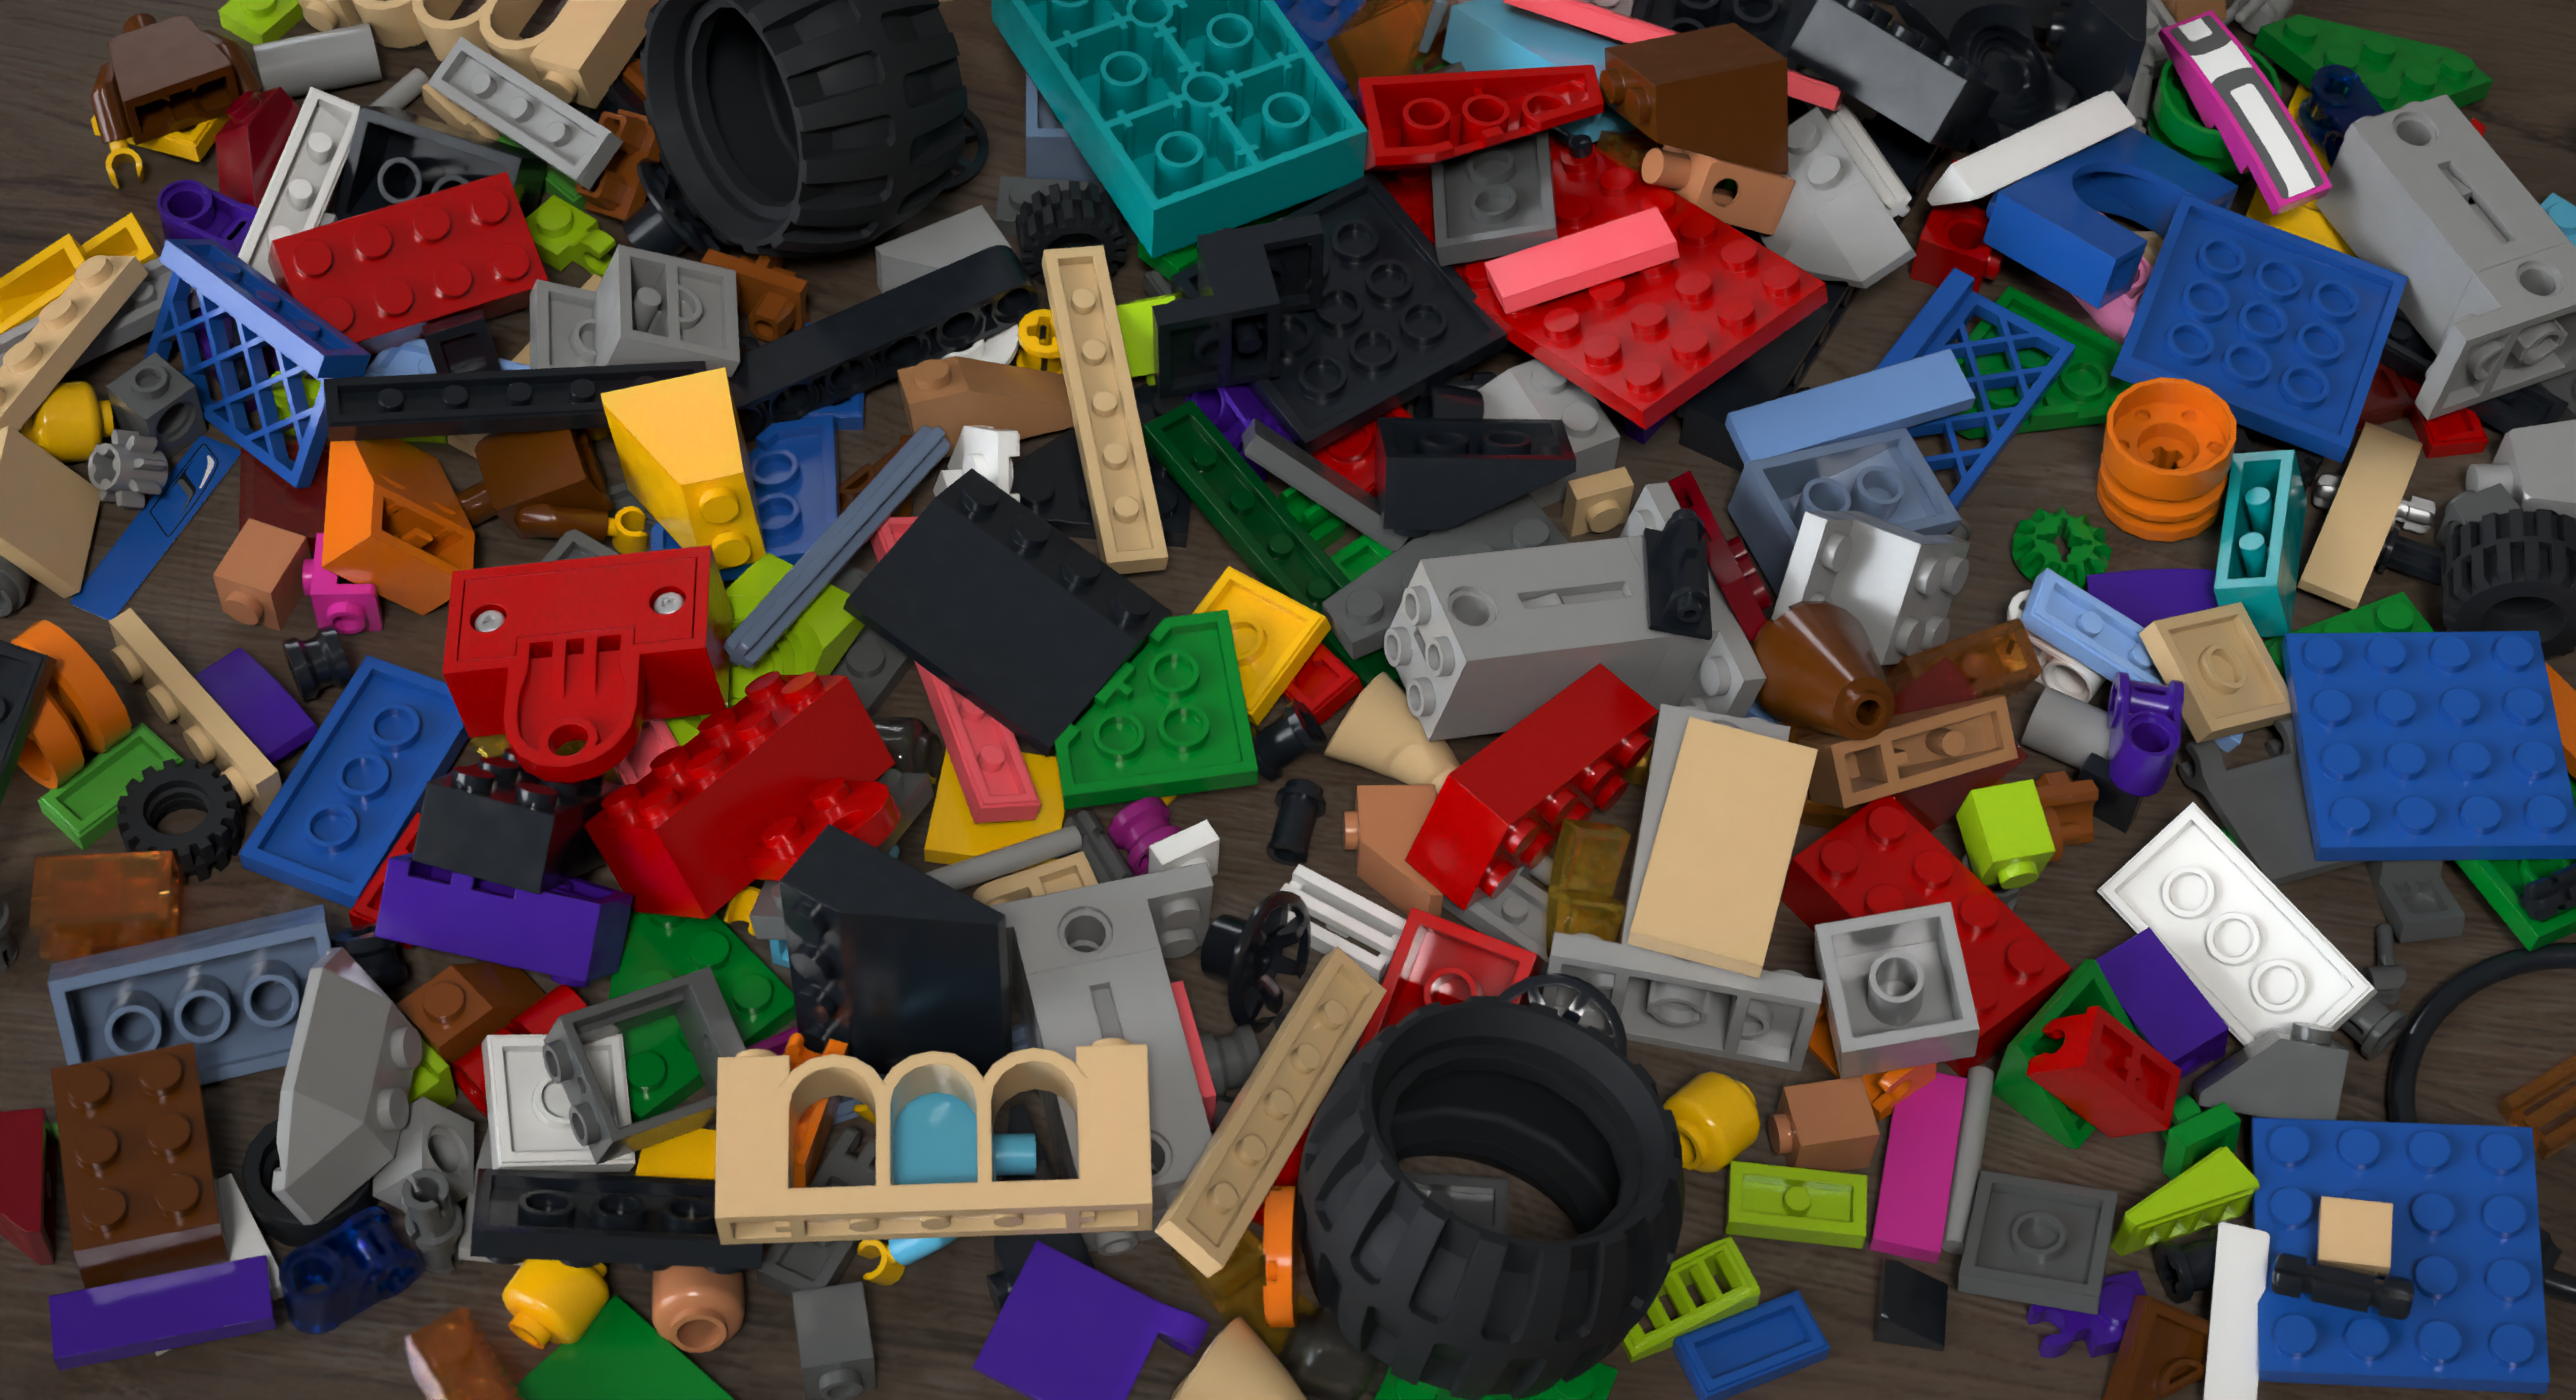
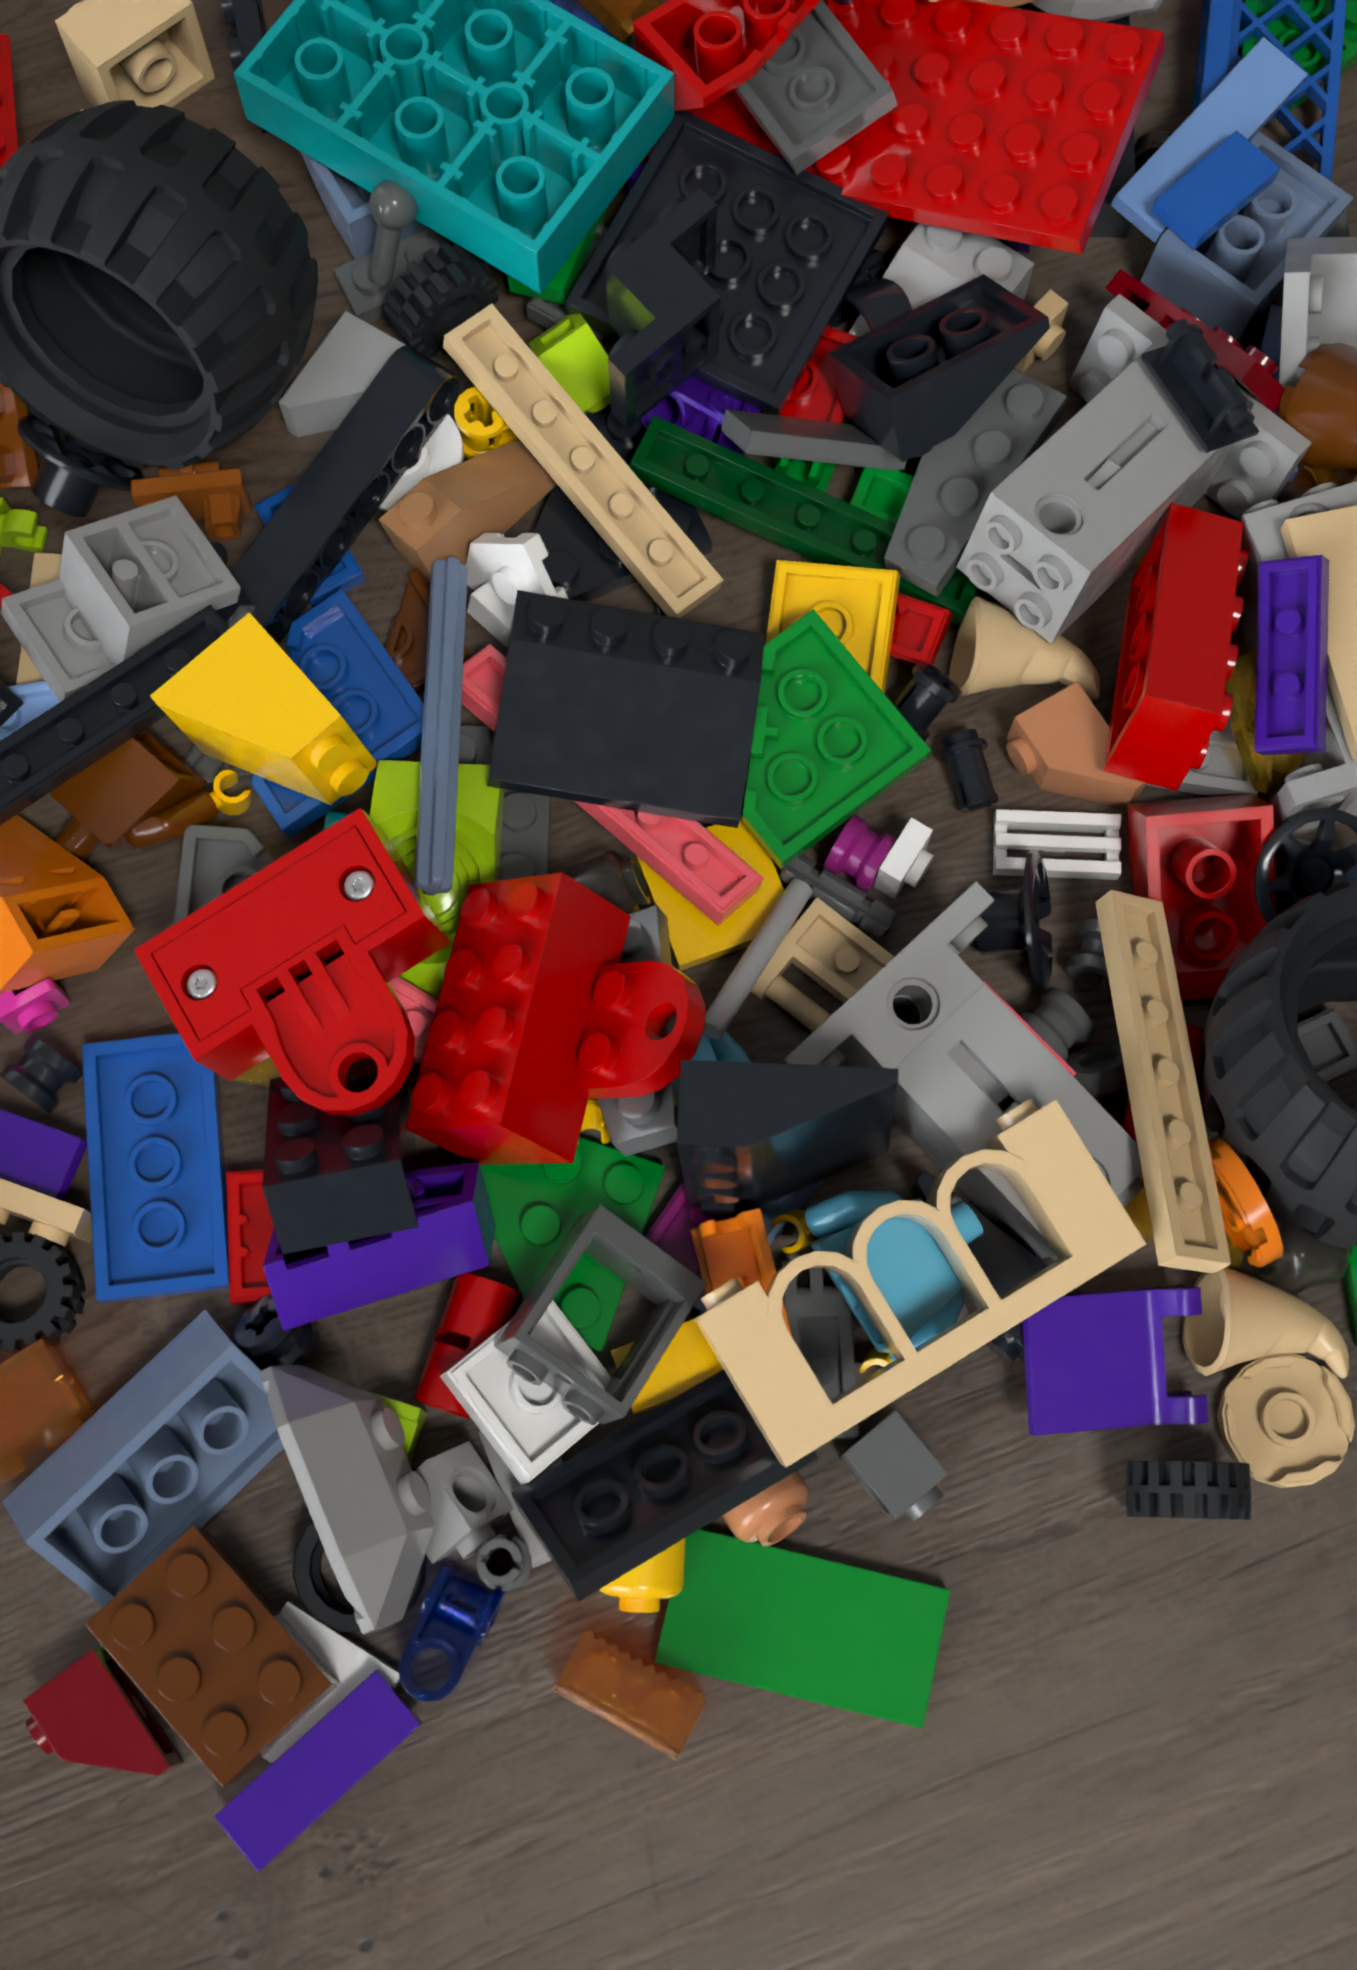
camera: 25 degrees left, 20 degrees up
(467, 1005) = (397, 1342): dark orange slope -> none
(1063, 137) = (392, 210): none -> dark grey bar
(1581, 260) = (928, 110): coral tile -> none
(1622, 829) = (1292, 655): none -> dark purple tile
(1819, 446) = (1215, 190): none -> blue tile

